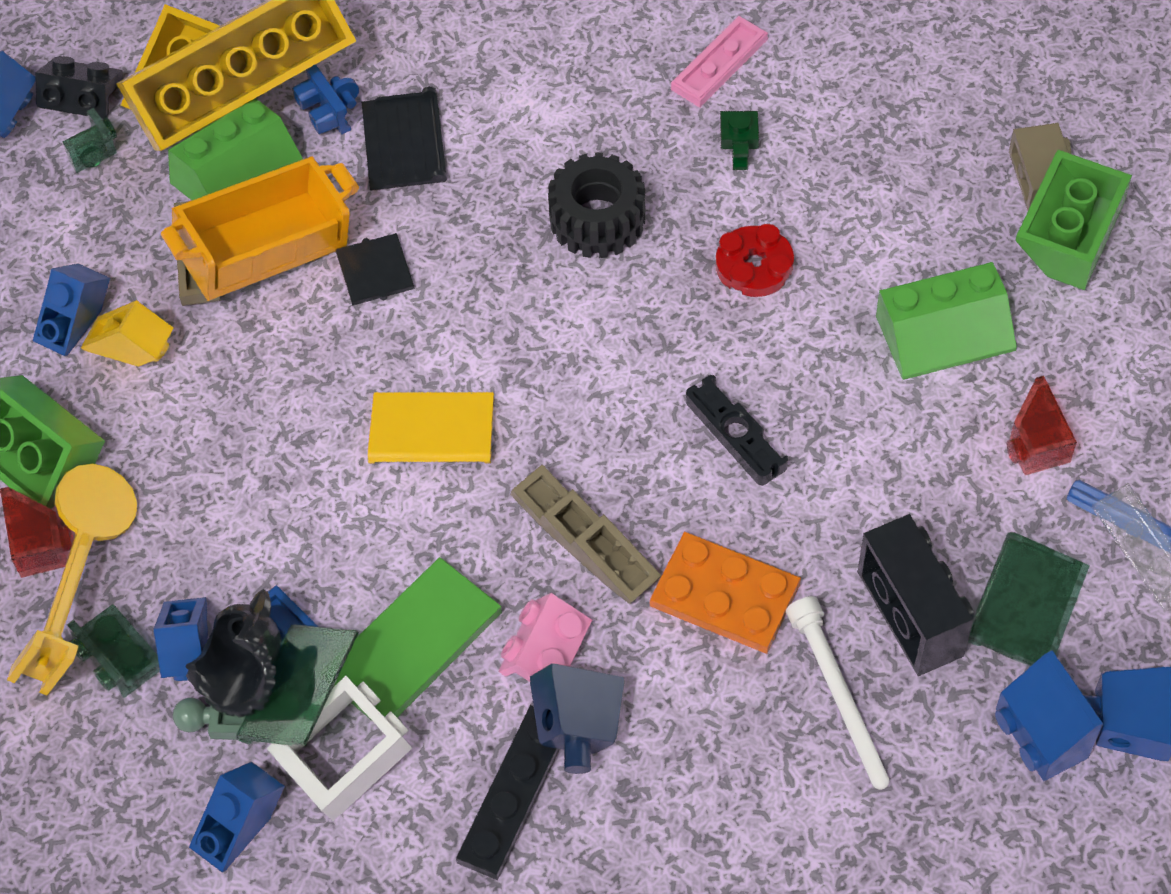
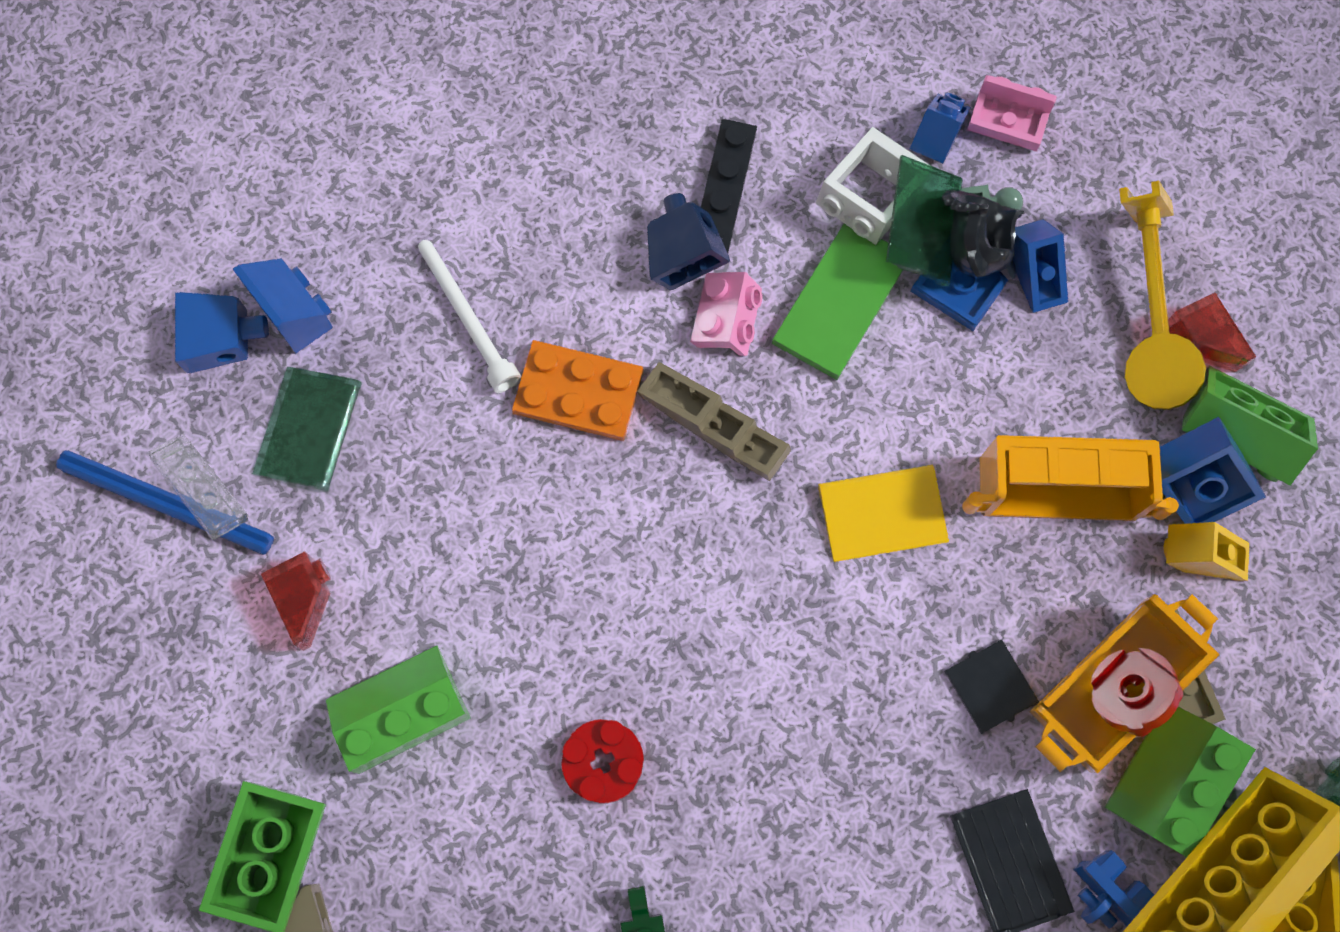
camera: 165 degrees right, 15 degrees up
(69, 306) = (1278, 577): blue slope -> none
(105, 393) = (1207, 474): none -> blue slope
(116, 649) = (1097, 245): clear green bracket -> none
(148, 815) = (1011, 112): none -> bright pink bracket
(242, 409) = (1071, 479): none -> light orange container
(266, 178) = (1140, 713): none -> plate
(597, 228) = (815, 782): black tyre -> none
(749, 450) = (613, 572): black piece -> none
(915, 594) = (403, 390): black brick -> none

